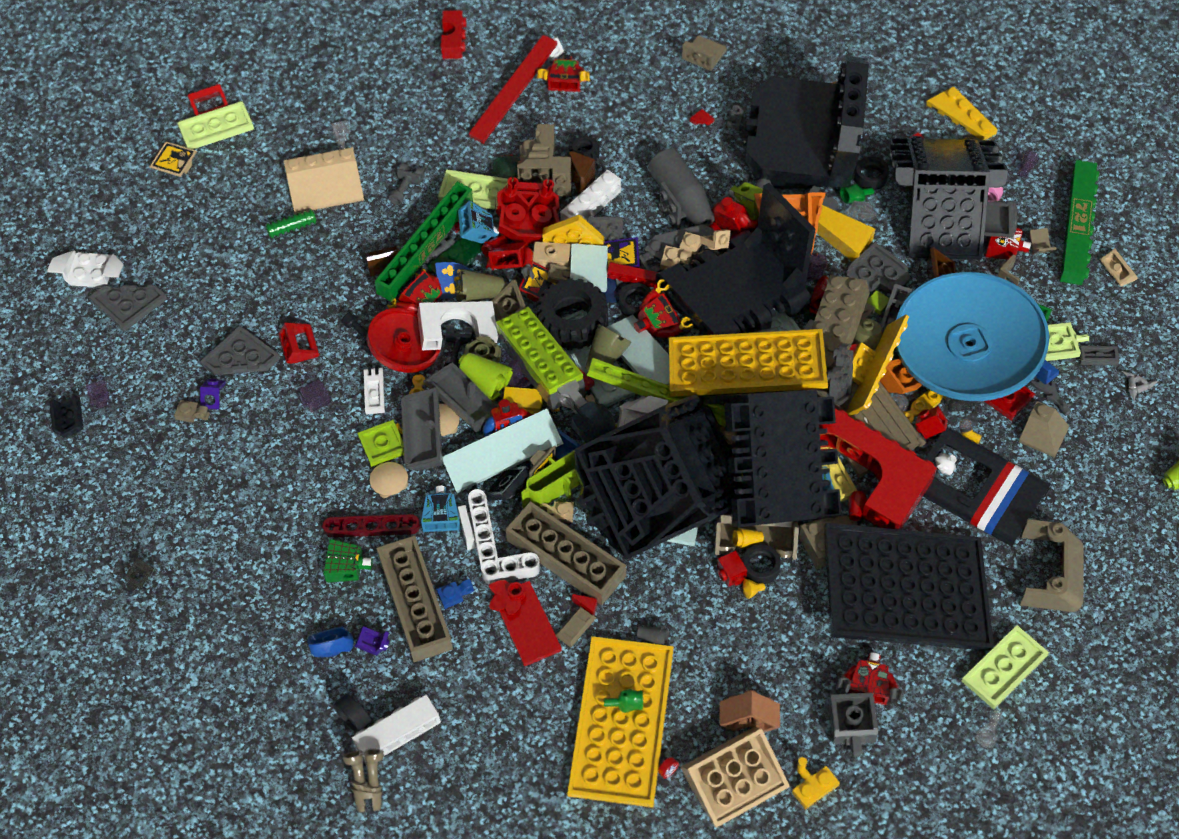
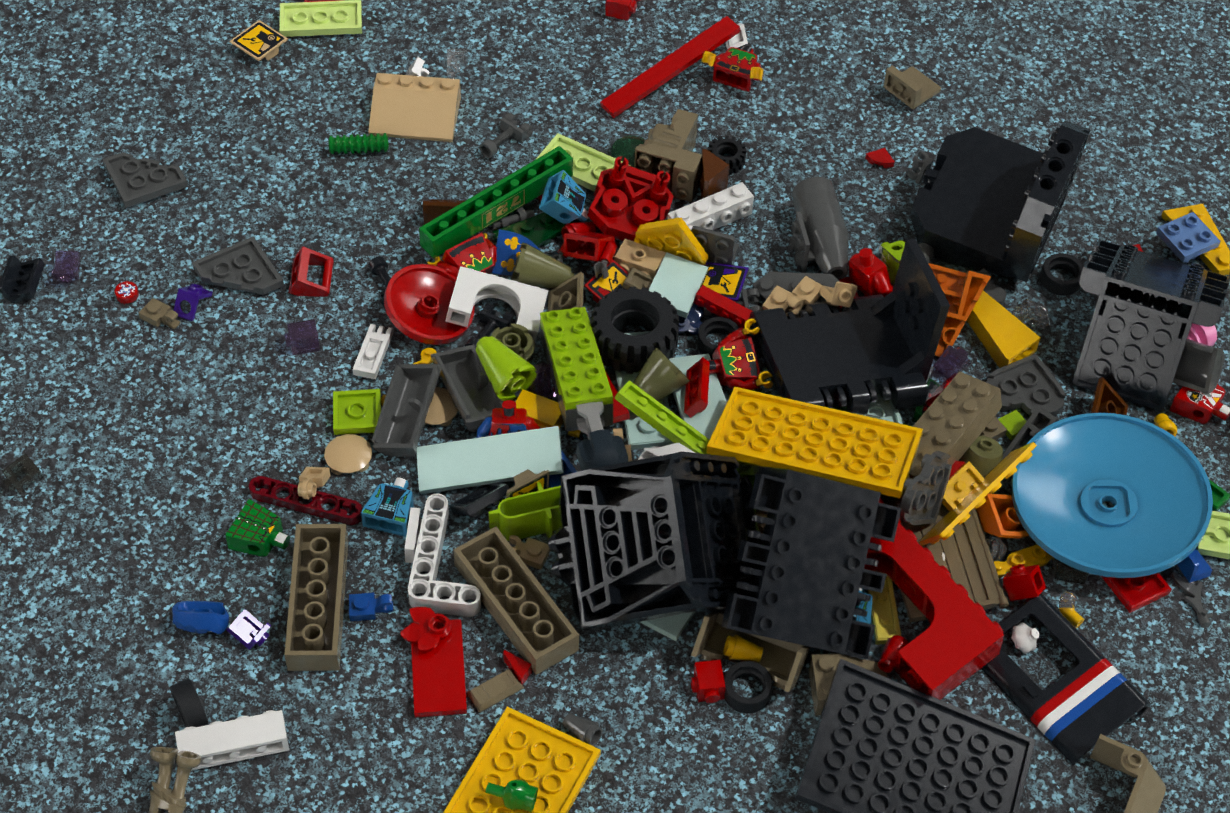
camera: 15 degrees right, 5 degrees down
(86, 268) = (112, 128): white piece -> none
(156, 401) = (126, 292): none -> red tile
(312, 148) = (416, 68): none -> white tile
(370, 507) = (312, 479): none -> tan plate
(639, 346) = (697, 388): none -> red plate
(750, 588) = (724, 711): yellow rock -> none
(854, 193) = (1033, 291): green piece -> none
(954, 117) = (1188, 237): none -> medium blue plate
(986, 268) = (1163, 421): none -> yellow piece
(1004, 270) = (1190, 429): dark tan bracket -> none
(1044, 430) = (1167, 635): dark tan slope -> none

